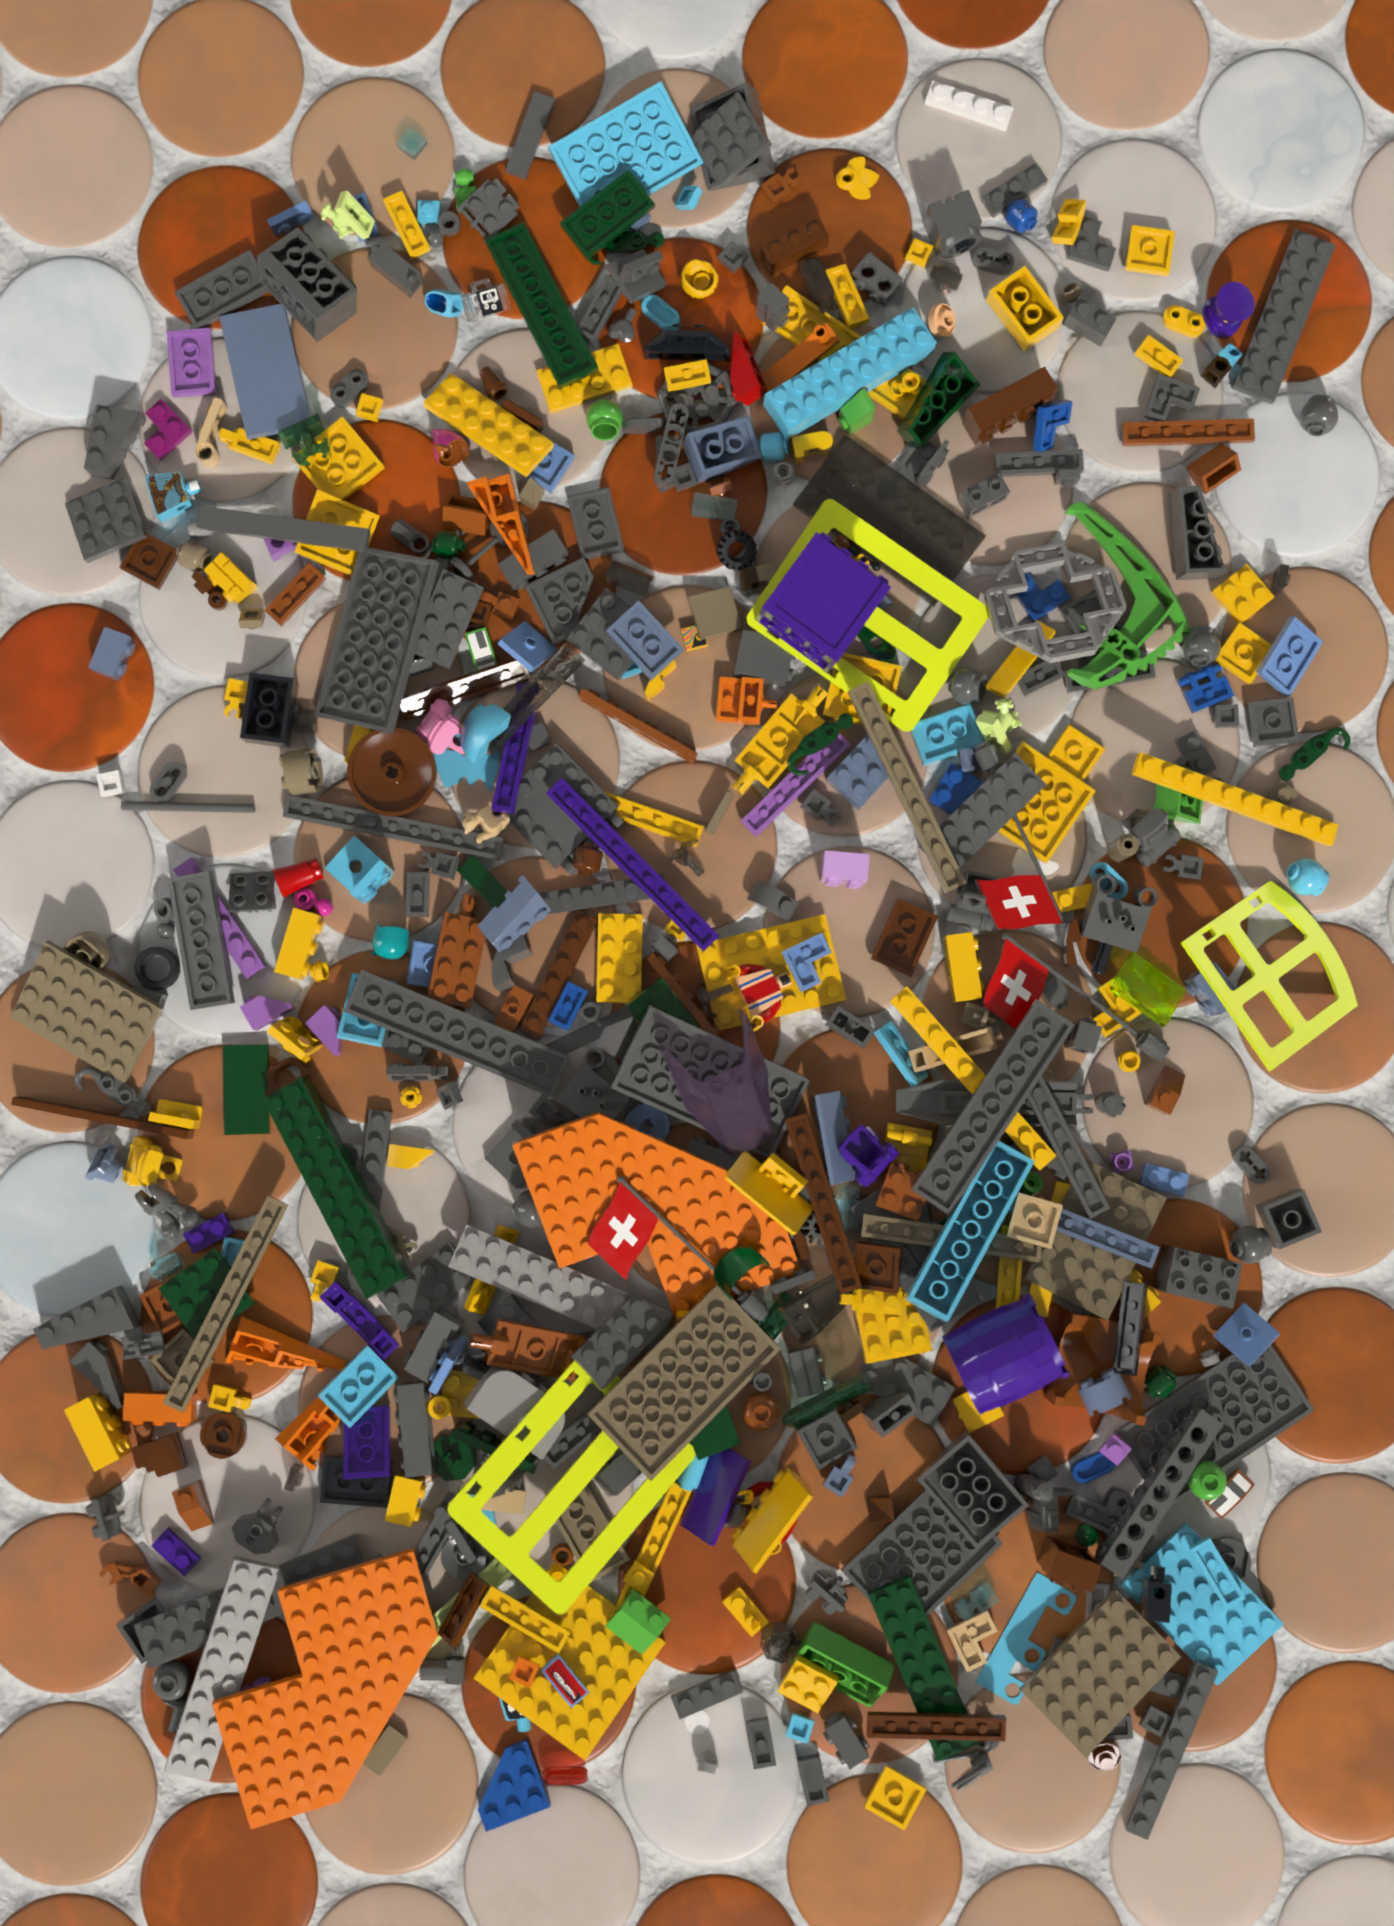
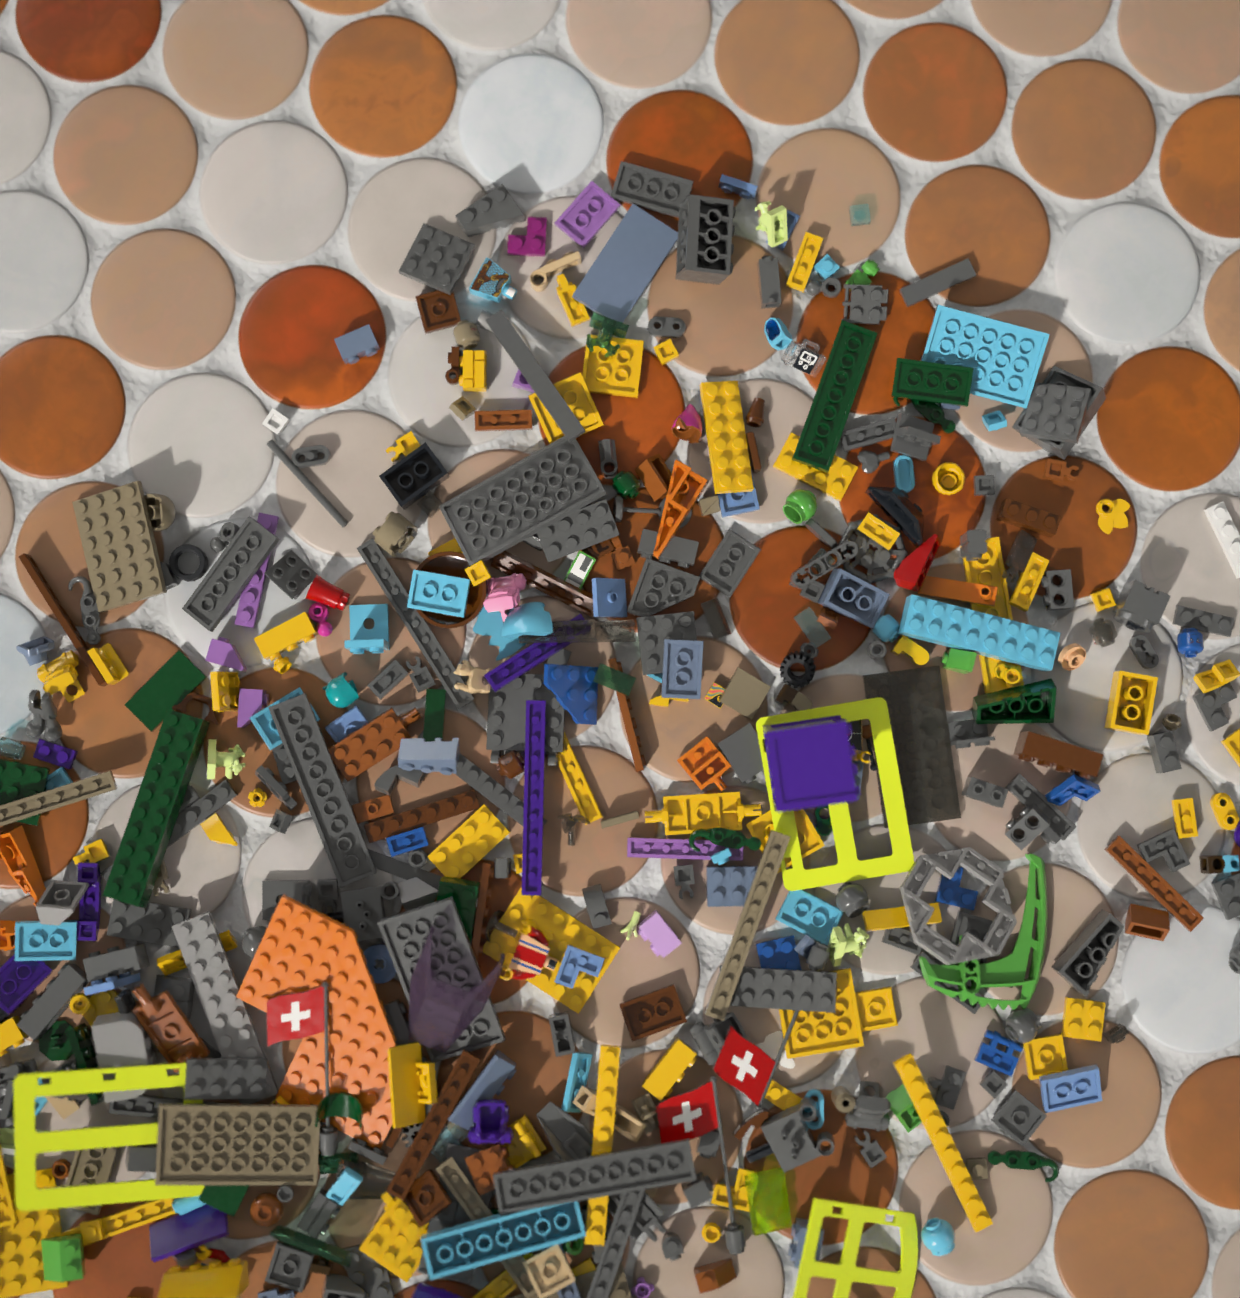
camera: 45 degrees right, 0 degrees up
(336, 1341) = (59, 901): none -> light grey slope
(355, 1089) = (224, 759): none -> yellowish green piece
(386, 781) = (438, 593): none -> medium azure plate
(401, 731) = (478, 573): none -> yellow plate
(577, 747) = (574, 690): none -> blue plate
(599, 705) = (614, 679): none -> clear green plate
(803, 1326) = (344, 1186): none -> medium azure tile
(817, 888) = (632, 926): none -> yellowish green bar
(830, 757) = (721, 856): none -> medium azure plate
(1050, 487) = (1030, 829): none -> dark grey brick

